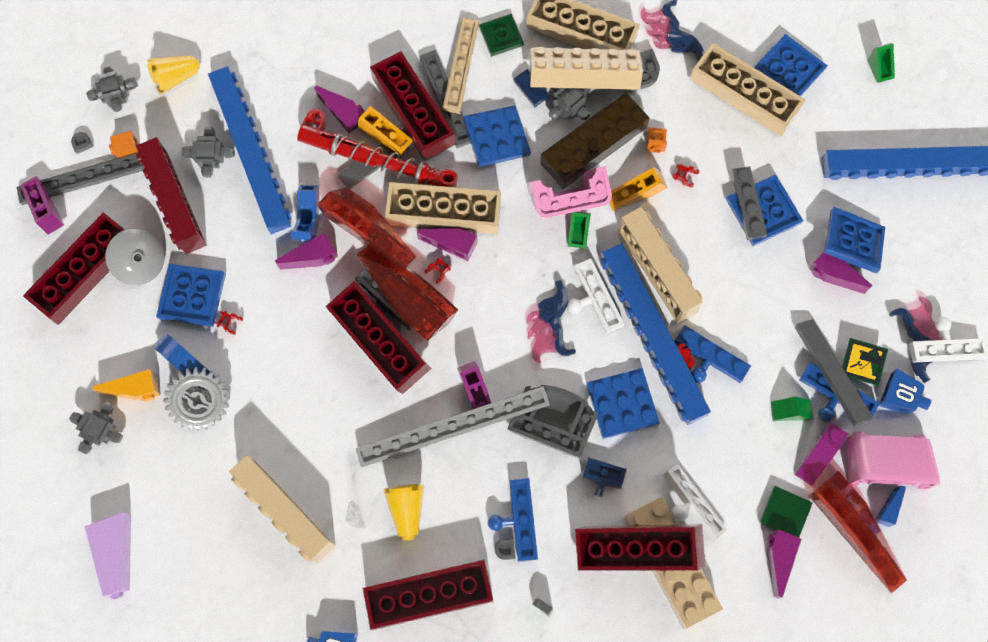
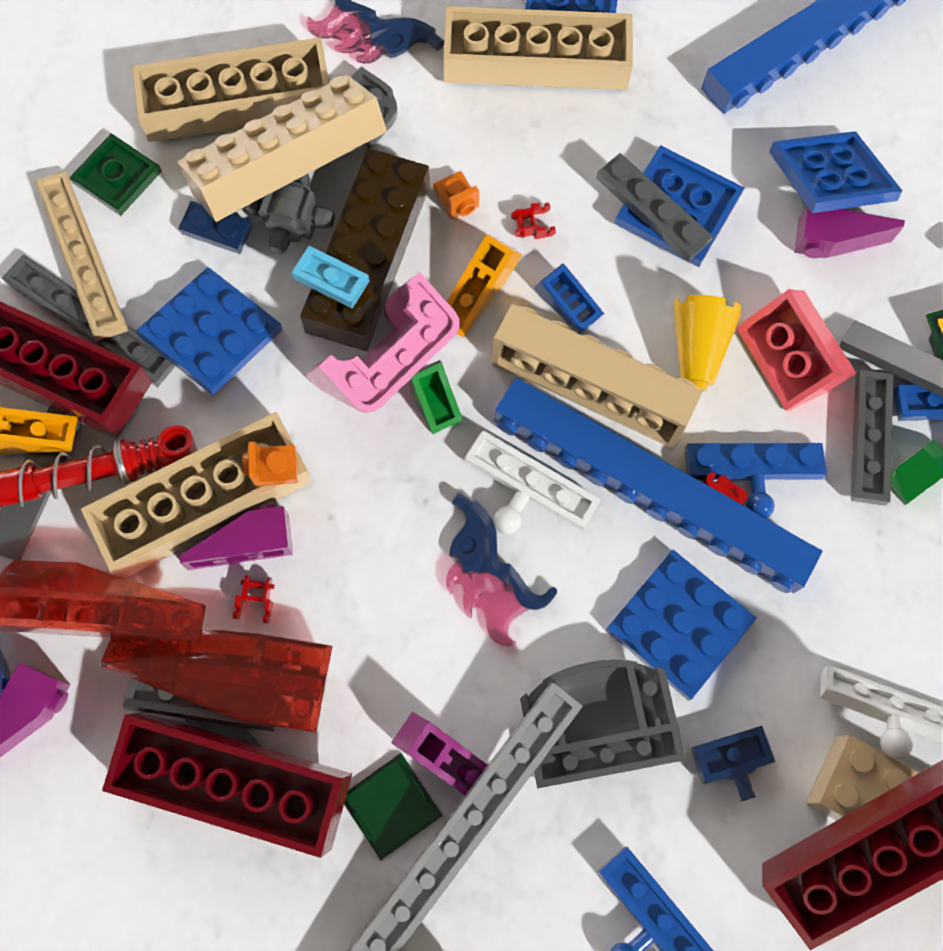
camera: 40 degrees left, 0 degrees up
(439, 395) = (391, 806): none -> dark green piece
(483, 213) = (271, 464): none -> orange bracket
(565, 144) = (330, 277): none -> medium azure plate
(683, 222) = (570, 283): none -> blue slope
(726, 280) = (703, 336): none -> yellow cone
(771, 314) = (795, 349): none -> coral slope
(778, 378) = (872, 438): none -> dark grey plate

